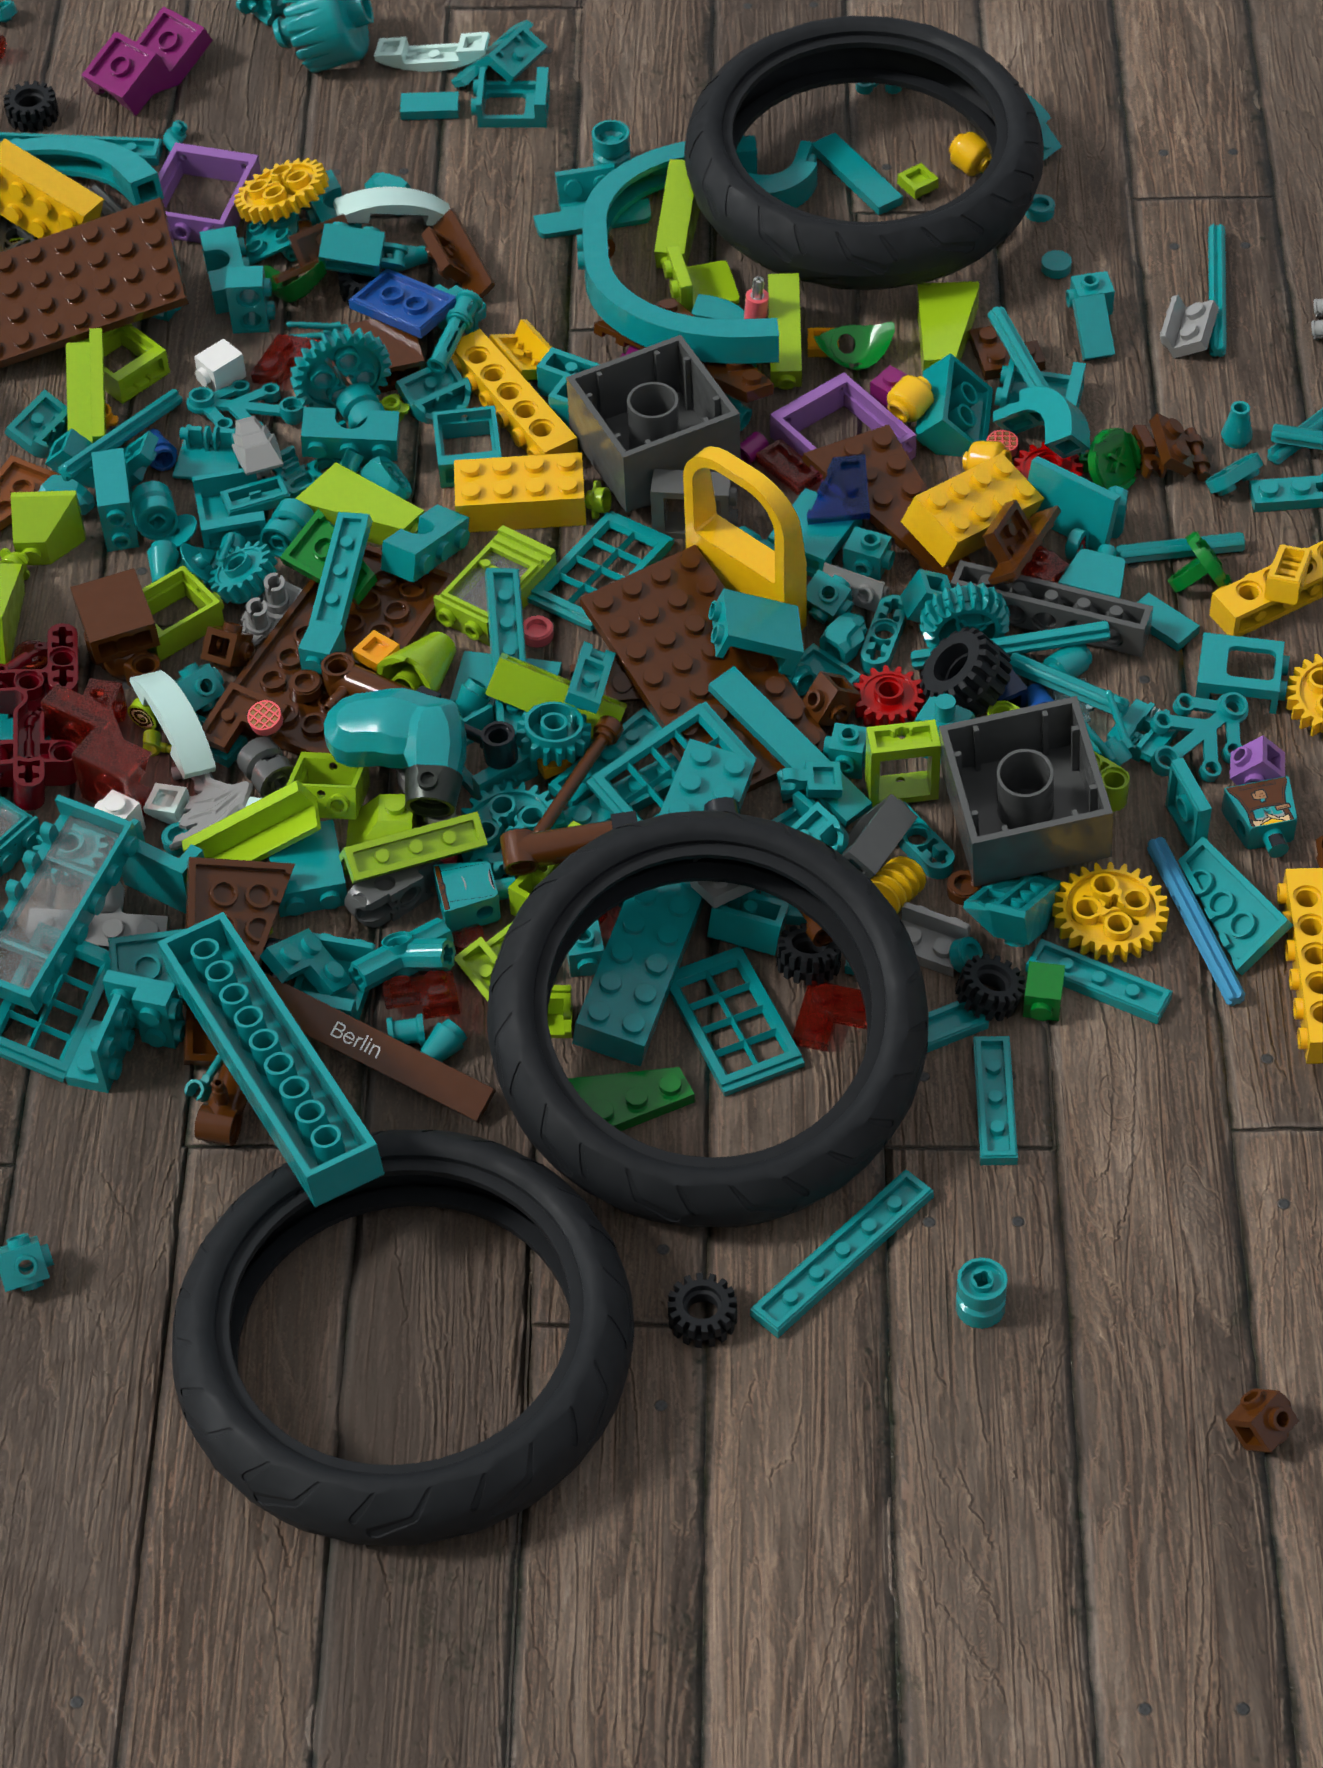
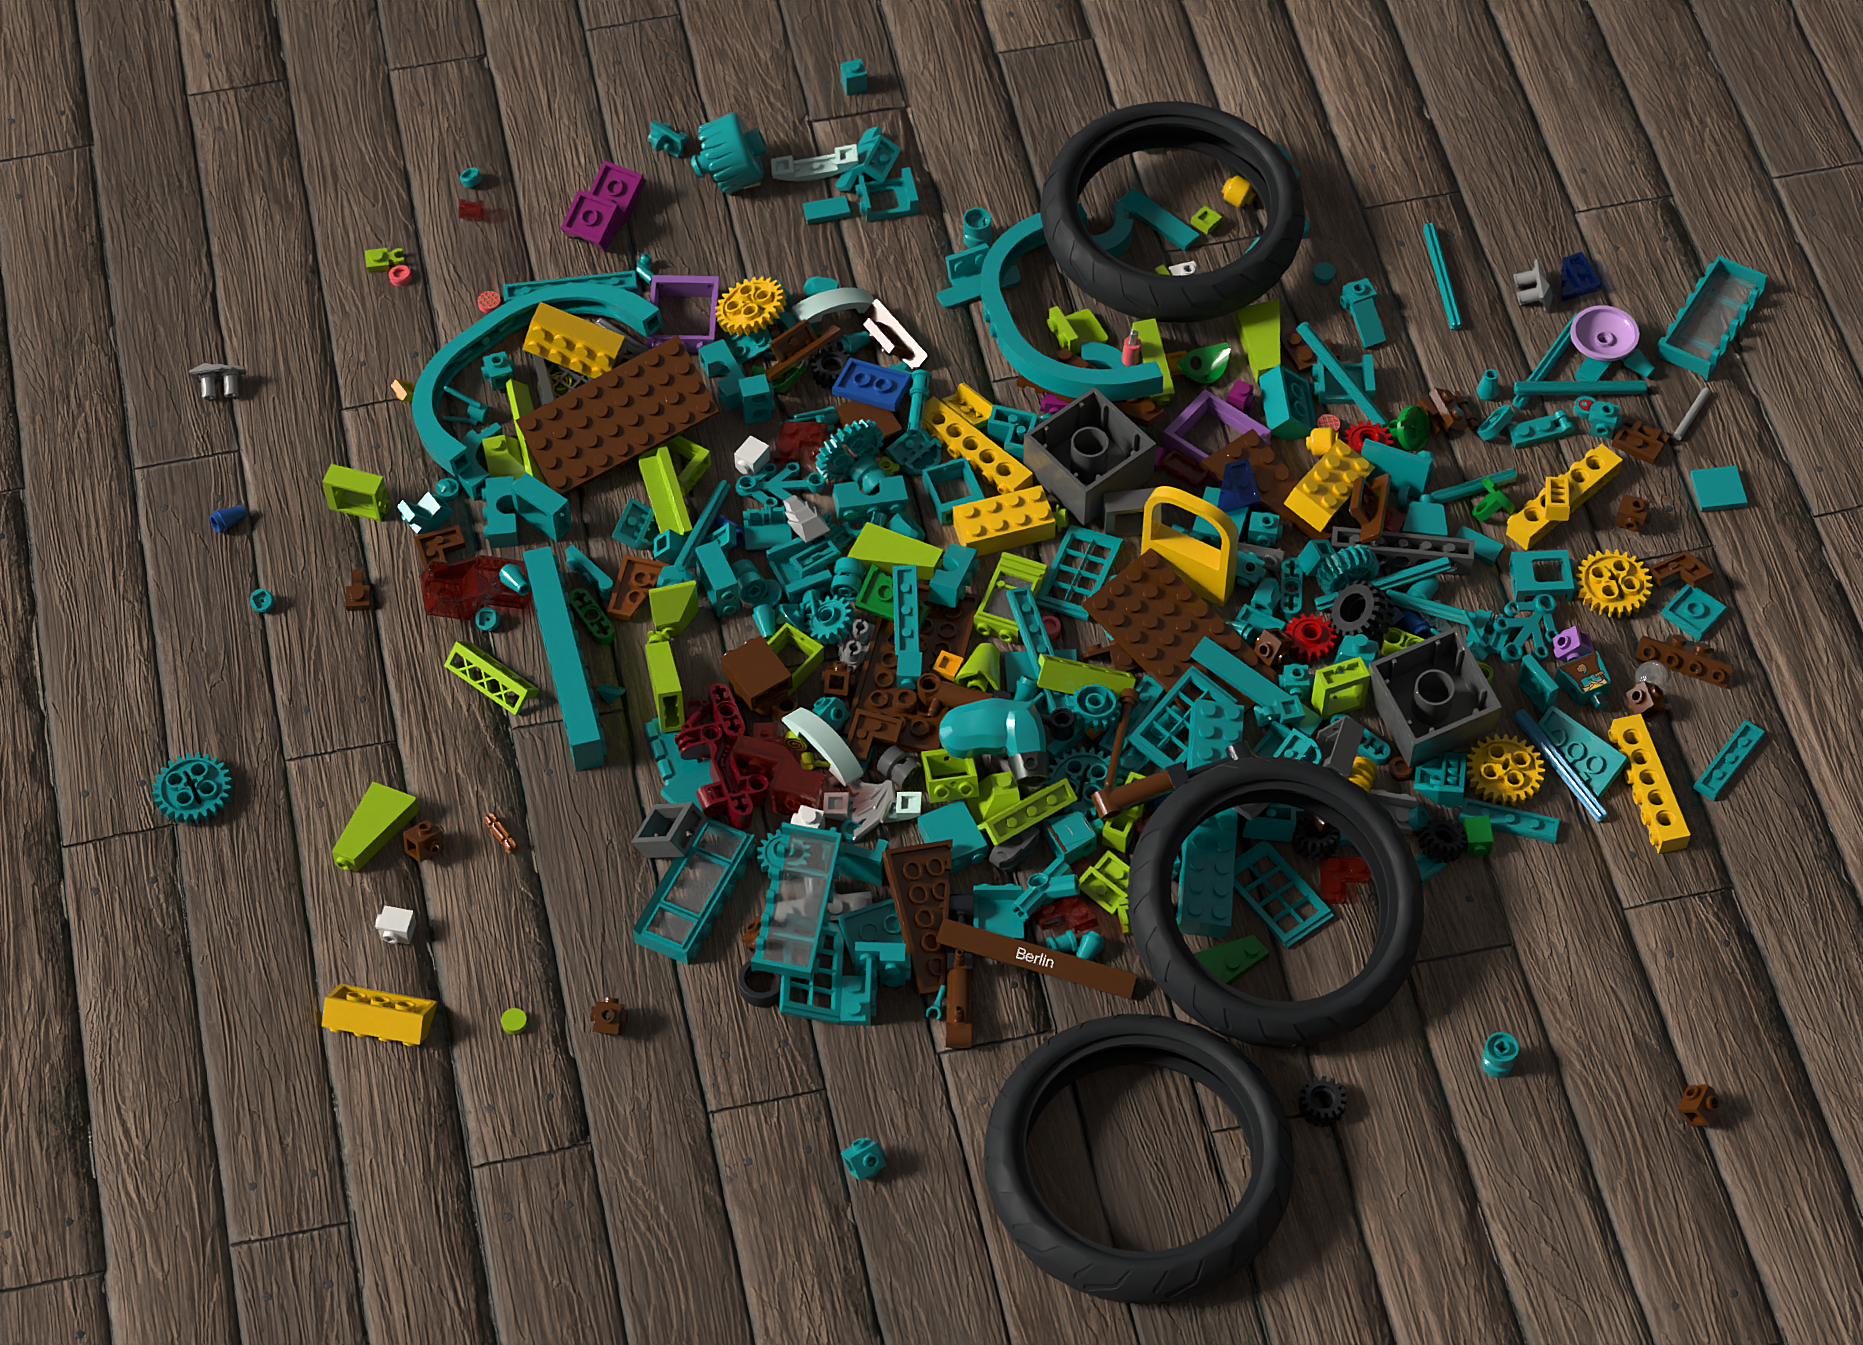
camera: 15 degrees left, 5 degrees up
(31, 106) = (522, 248): black tyre -> none
(261, 826) = (916, 818): lime panel -> none
(265, 718) = (891, 732): coral tile -> none
(271, 1060) = (997, 986): teal brick -> none
(307, 956) = (980, 905): teal plate -> none
(359, 250) = (827, 348): teal brick -> none
(589, 678) = (1108, 662): teal plate -> none
(677, 215) = (1044, 278): lime slope -> none
(757, 626) = (1213, 605): teal panel -> none
(841, 1253) = (1398, 1044): teal tile -> none
(910, 398) = (1260, 404): yellow head -> none
(995, 1100) = (1466, 918): teal tile -> none
(1065, 424) = (1376, 408): teal arch -> none
(1189, 327) = (1432, 311): light grey bracket -> none

